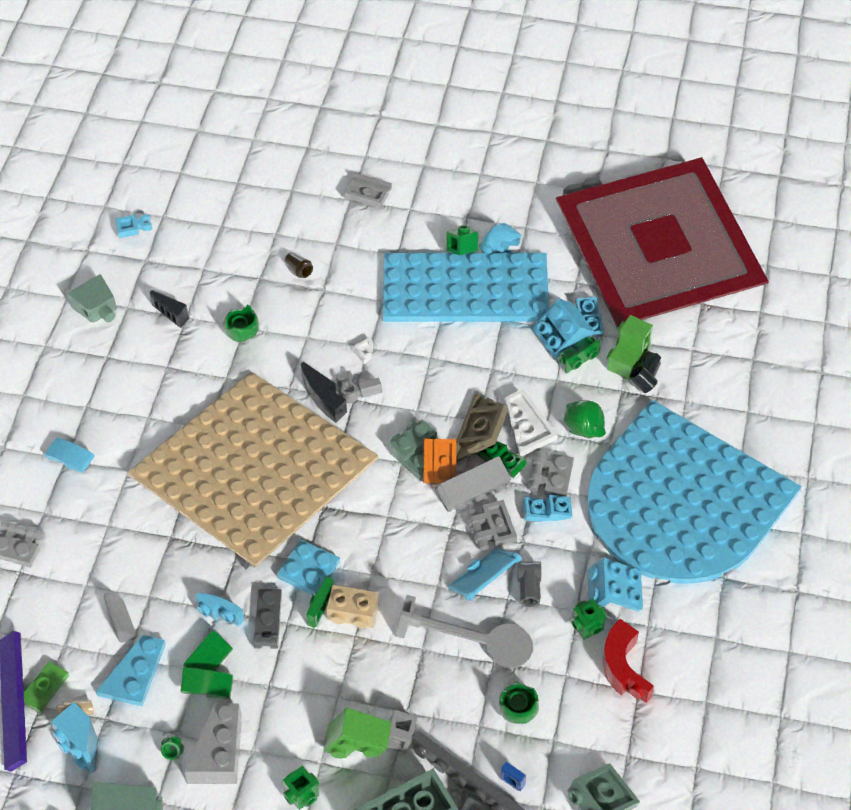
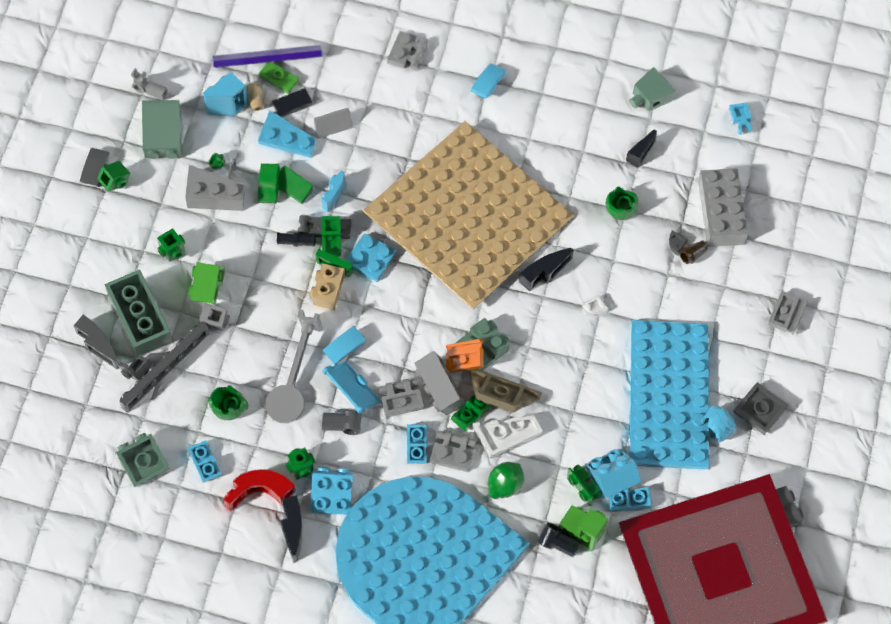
camera: 90 degrees right, 10 degrees up
(84, 668) = (292, 102): none -> black tile
(245, 239) = (722, 207): none -> light grey brick
(284, 607) = (331, 234): none -> green slope
(285, 281) = (677, 242): none -> dark grey tile
(286, 647) = (296, 239): none -> black pin
(364, 389) = (548, 293): light grey bar -> none
(431, 584) = (344, 344): none -> medium azure slope
(462, 240) = (717, 389): green brick -> none
(478, 211) = (761, 408): none -> dark grey plate
(513, 776) = (166, 395): blue tile -> none
(594, 728) = (204, 461): none -> medium azure slope
(668, 622) = (292, 526): none -> black slope

